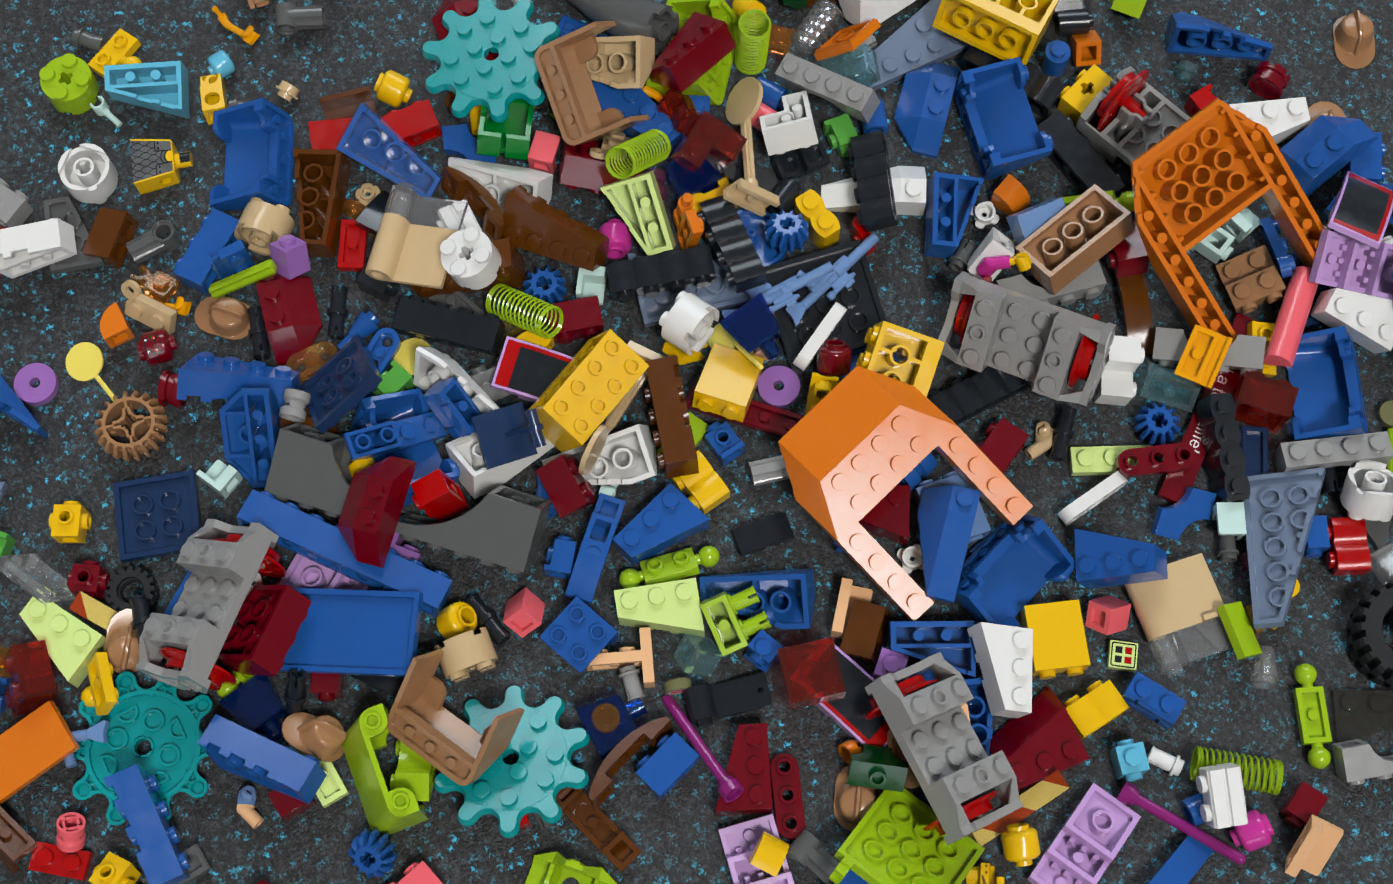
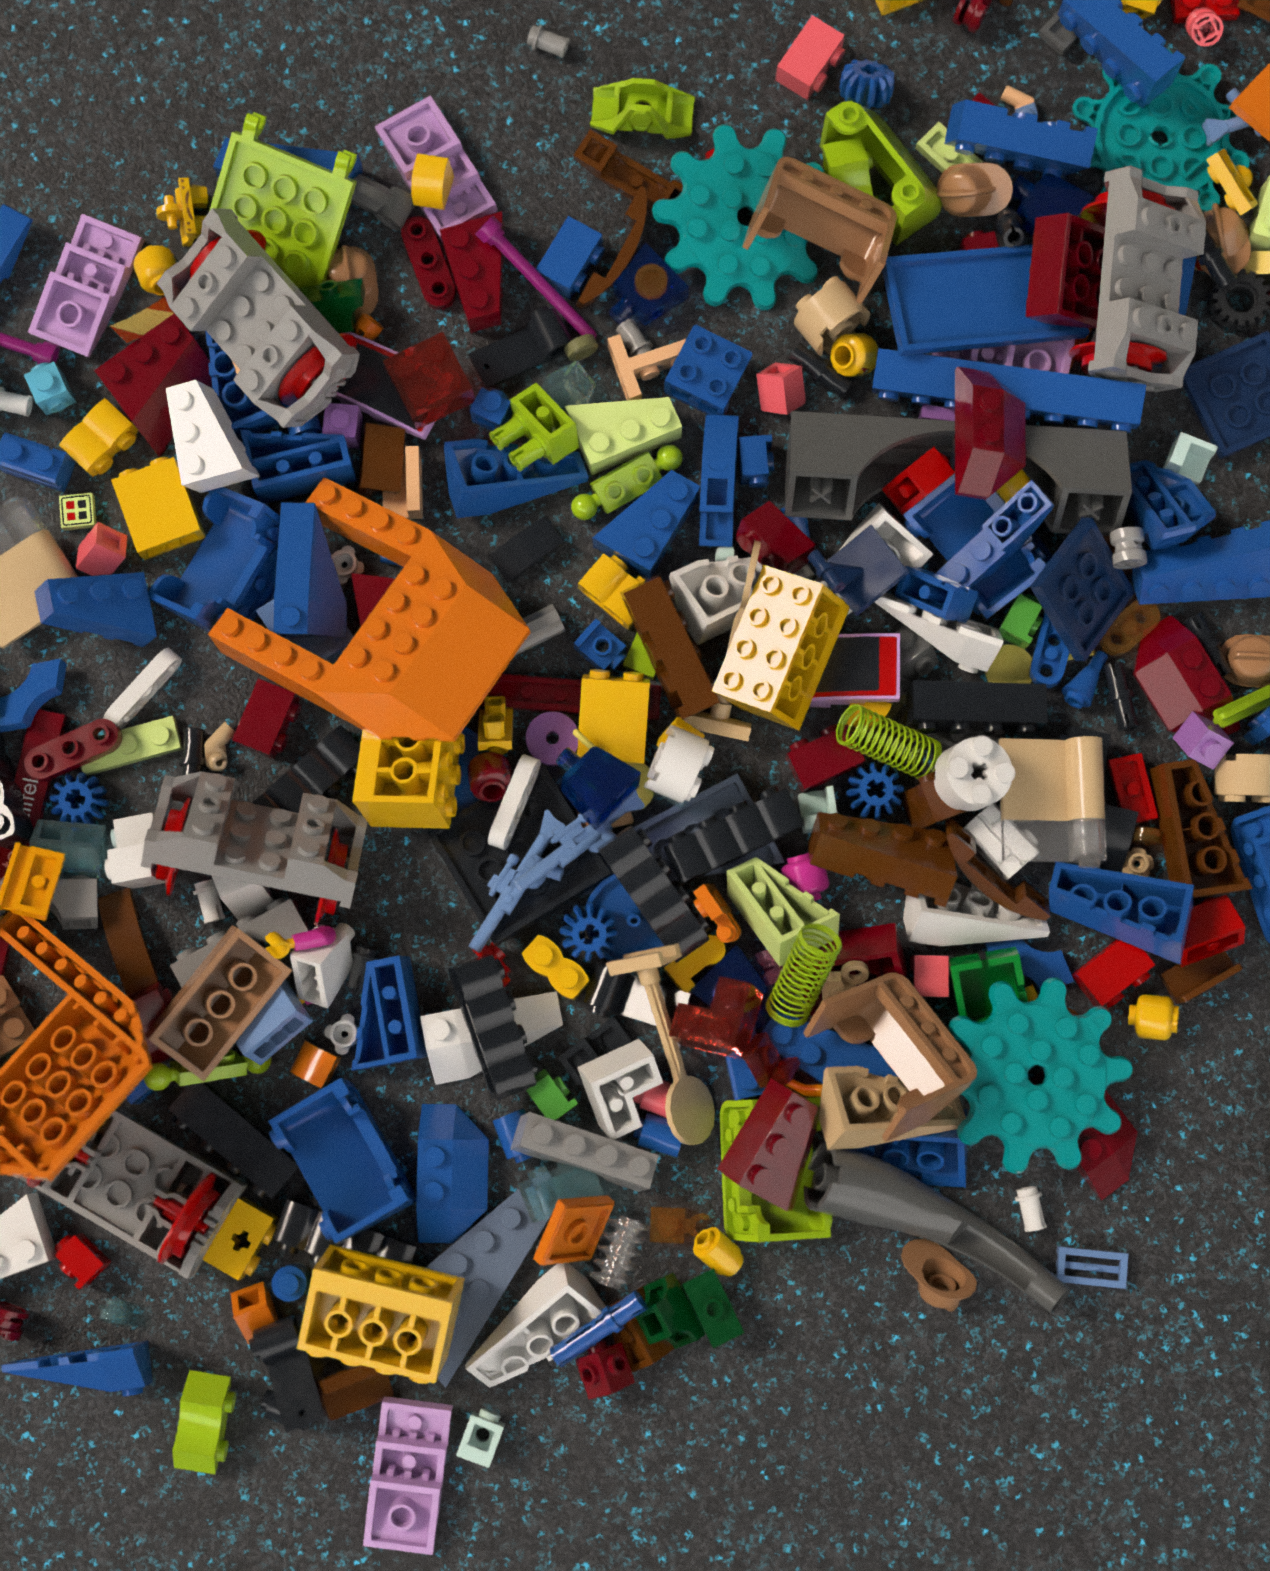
camera: 165 degrees right, 10 degrees up
(758, 43) = (694, 1209): lime piece -> none

